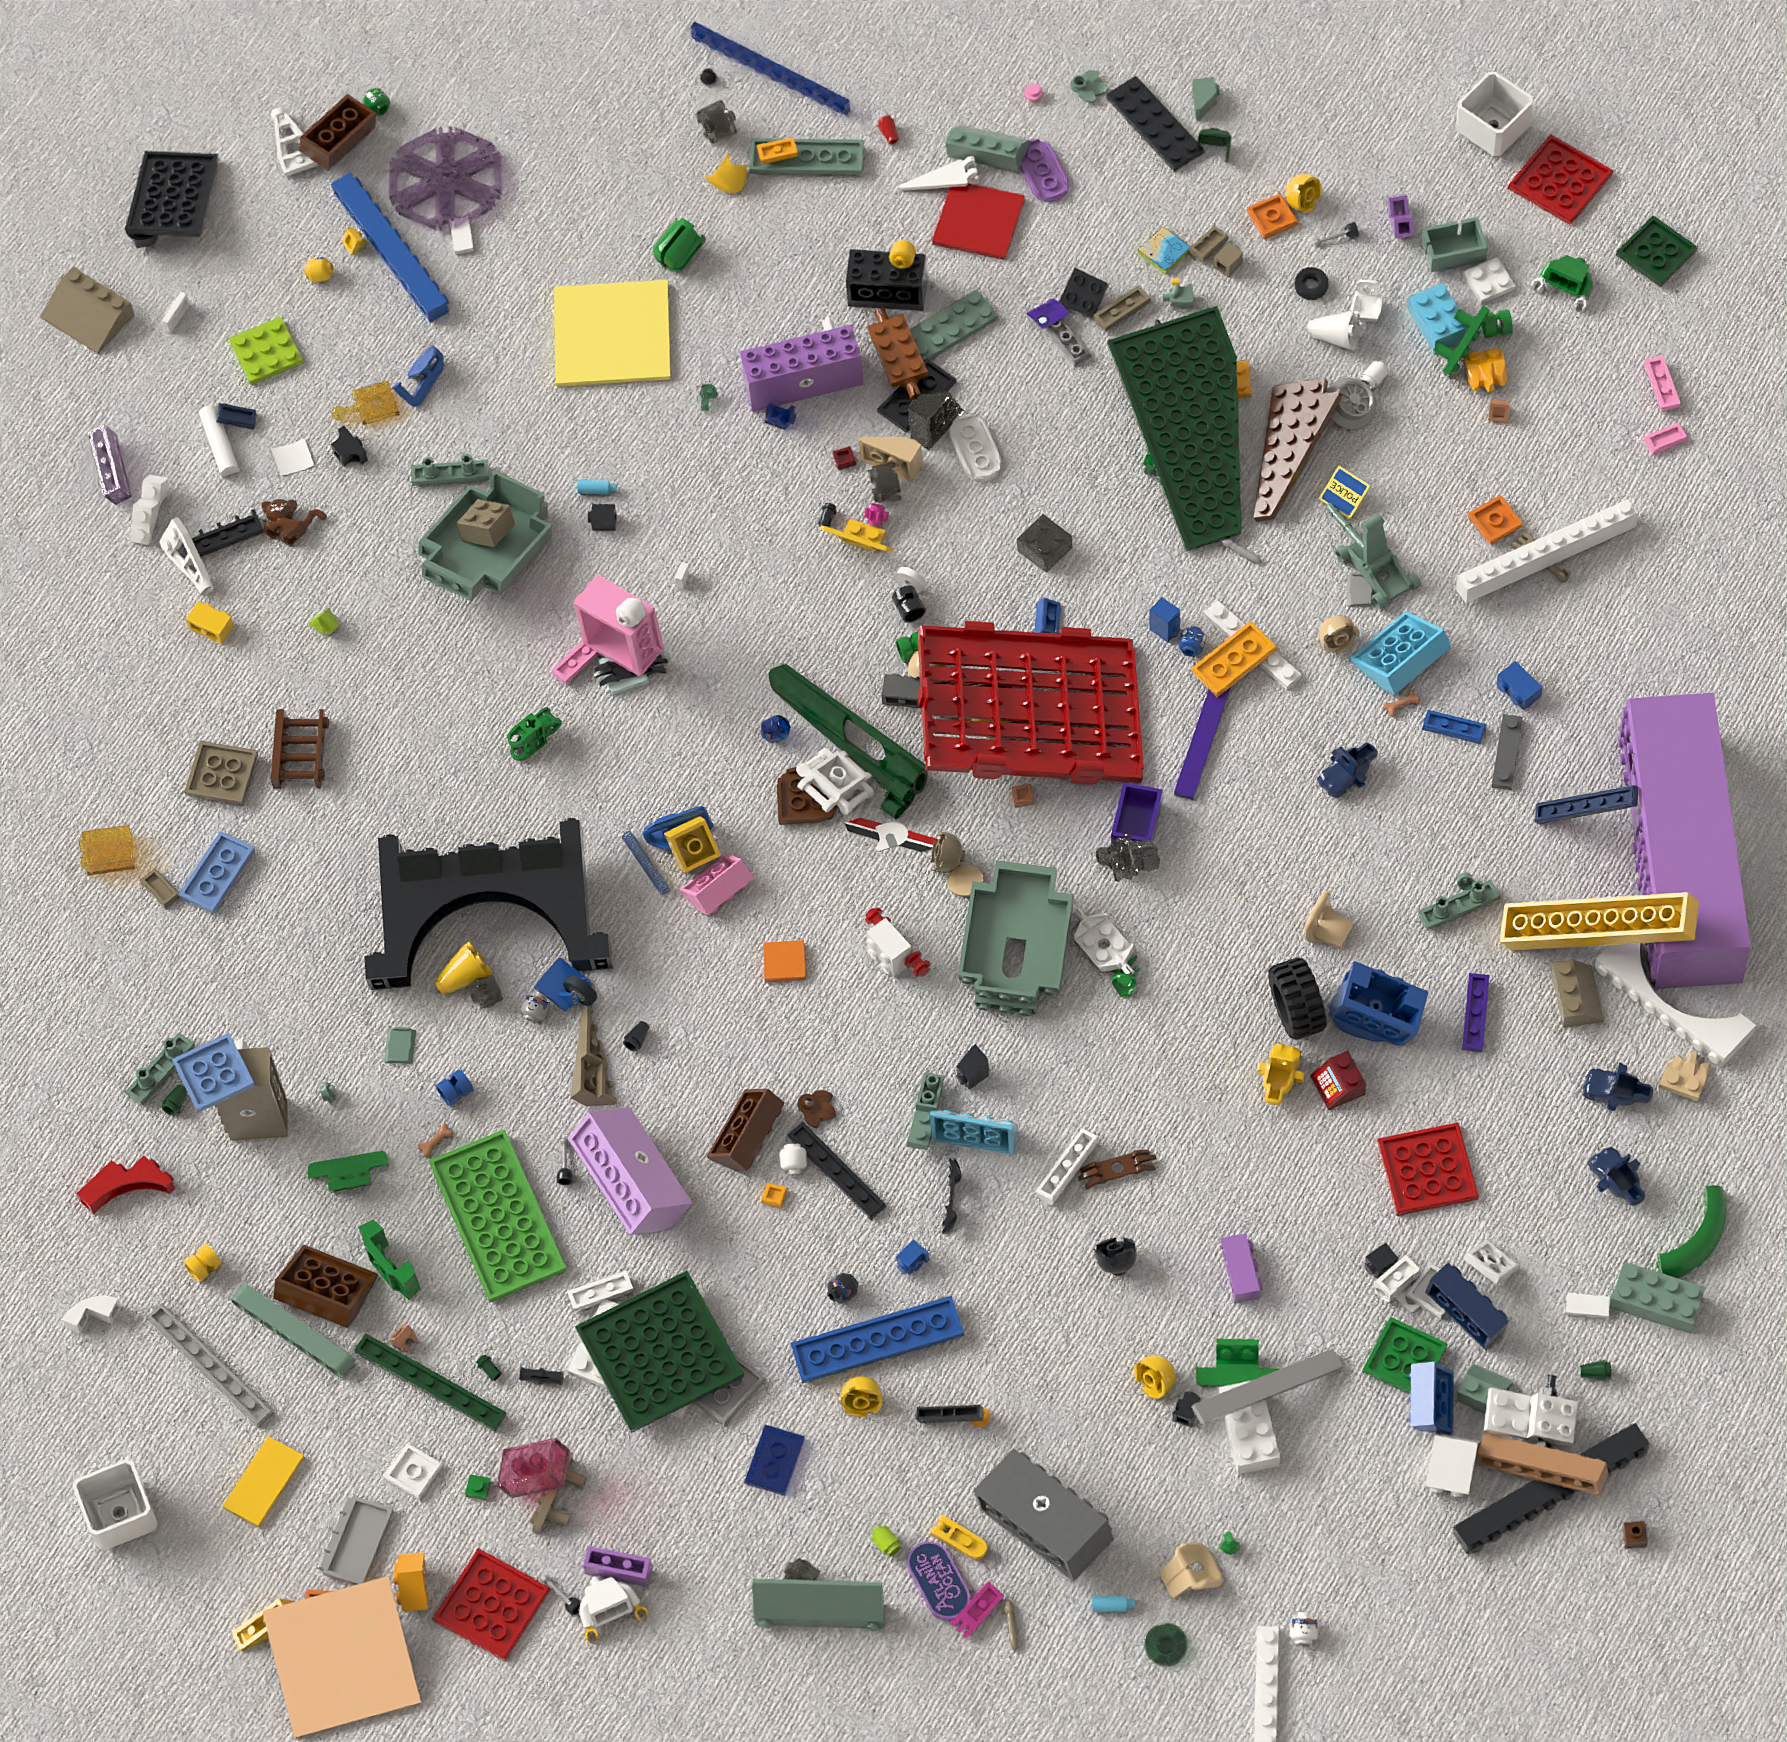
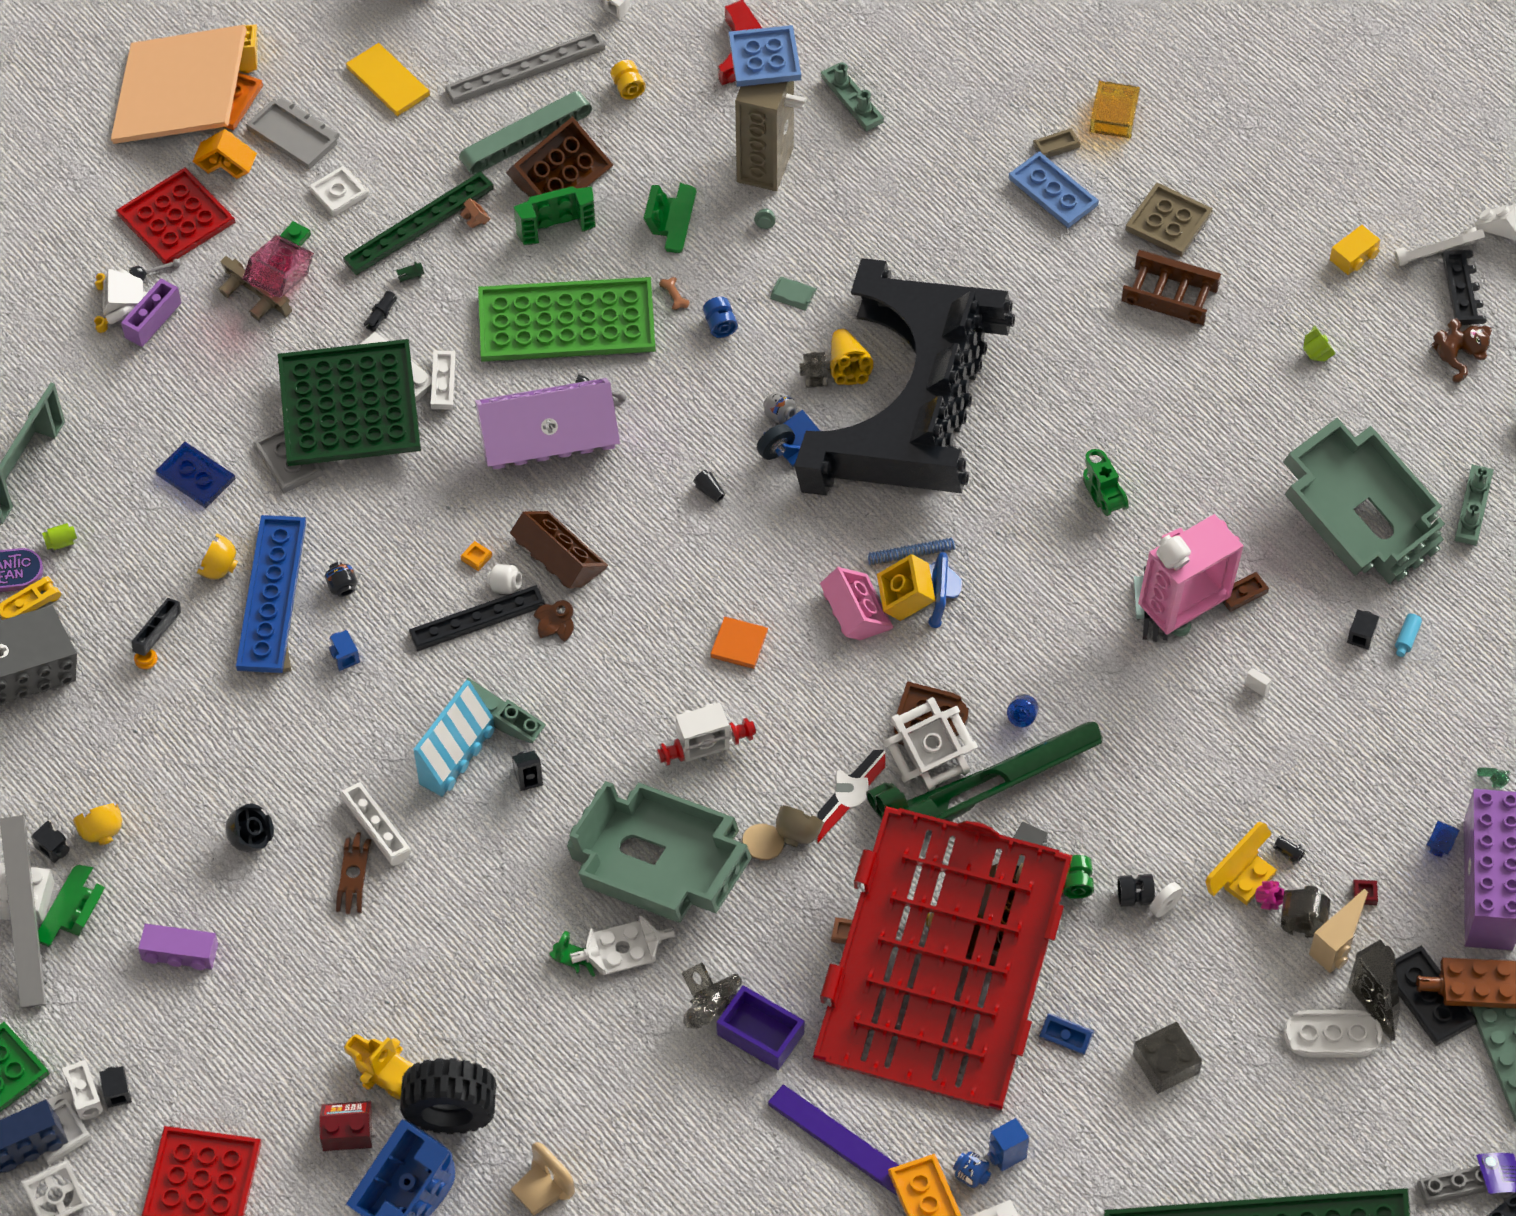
camera: 105 degrees right, 5 degrees down
(173, 1102) = (813, 100): dark green cone -> none
(486, 523) = (1379, 500): dark tan brick -> none
(590, 1078) = (685, 437): dark tan wedge -> none
(801, 1570) = (54, 455): clear smoke brick -> none
(954, 1177) = (373, 698): black piece -> none

